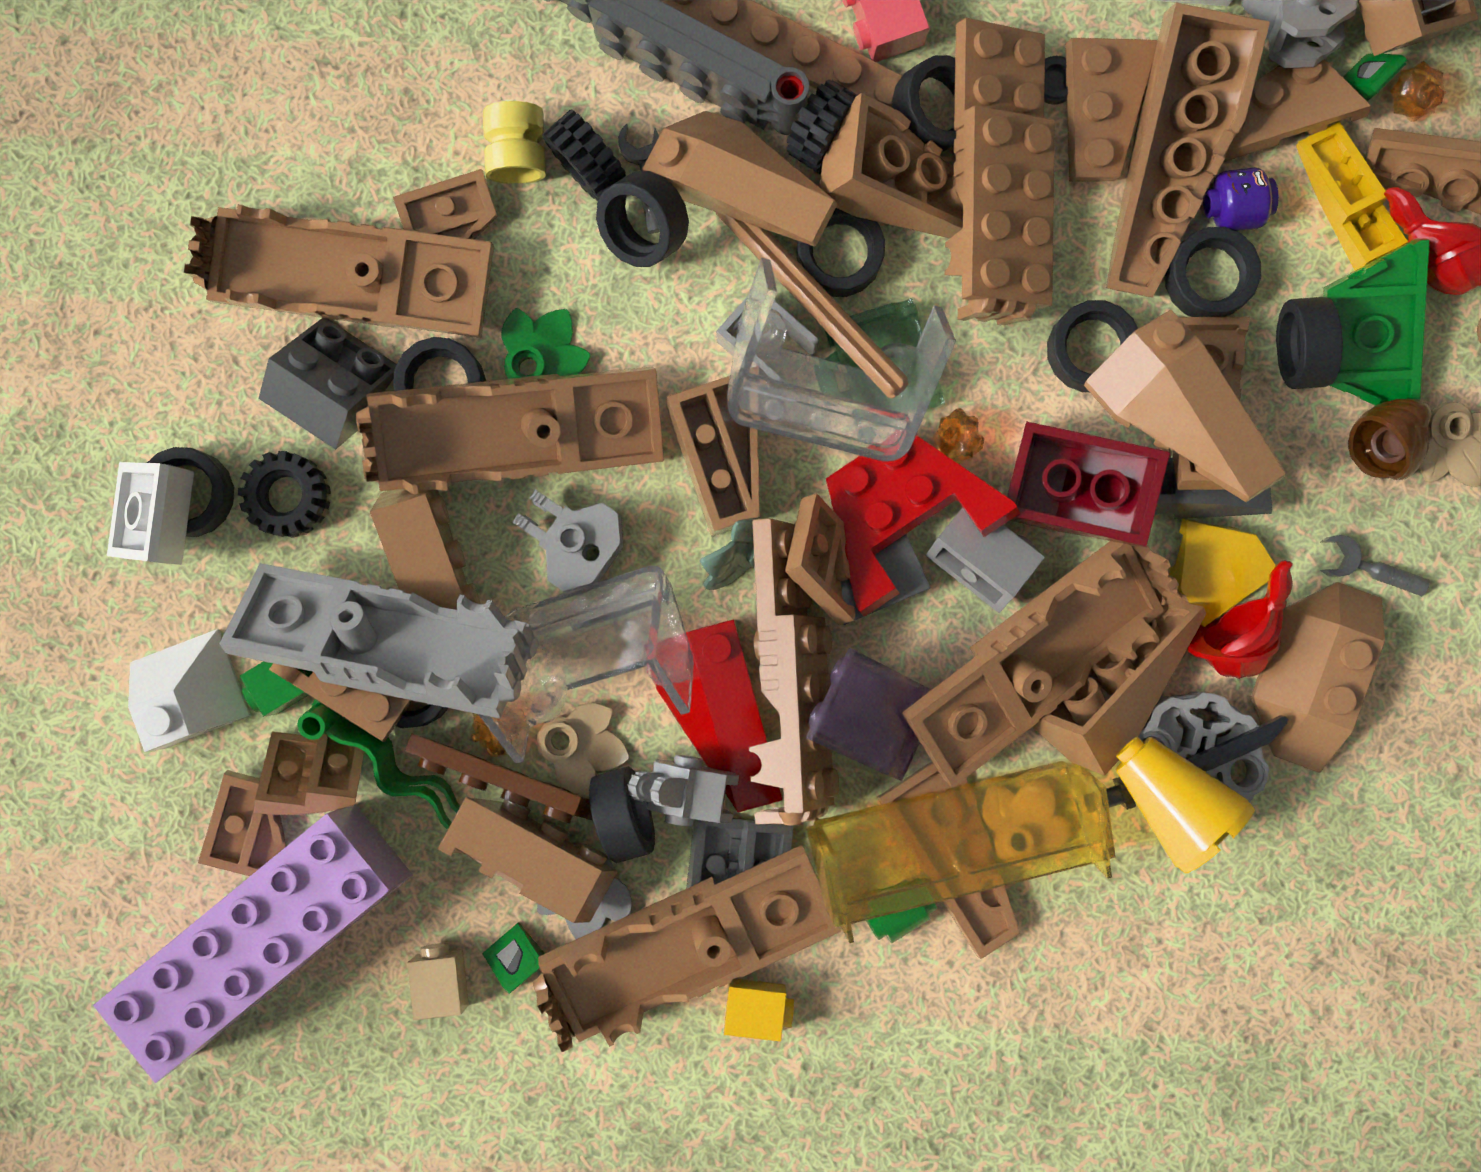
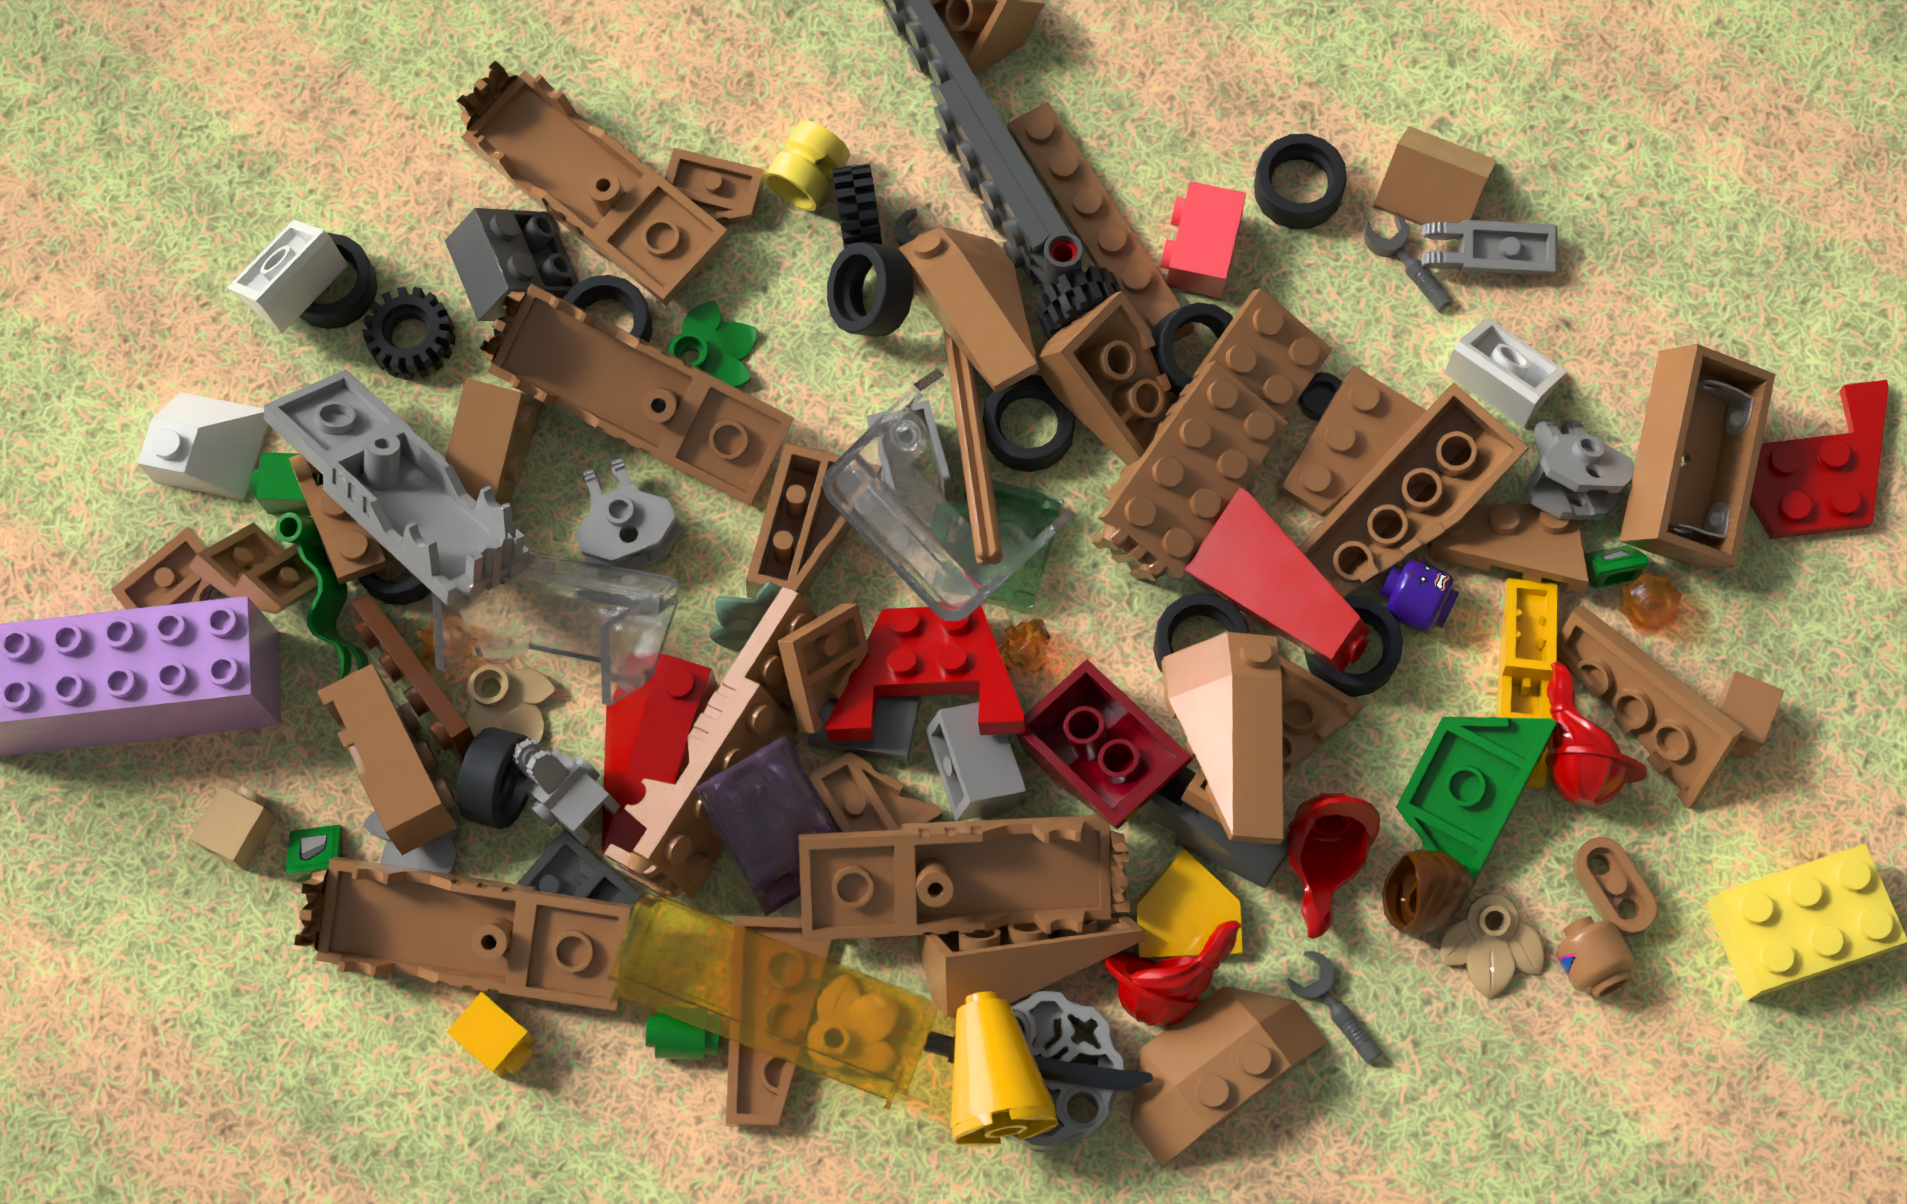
camera: 35 degrees right, 15 degrees down
(921, 643) = (867, 800): none -> medium nougat wing
(1128, 261) = (1274, 583): none -> slope
(1301, 444) = (1328, 849): none -> red piece
(1309, 342) = (1396, 755): black tyre -> none

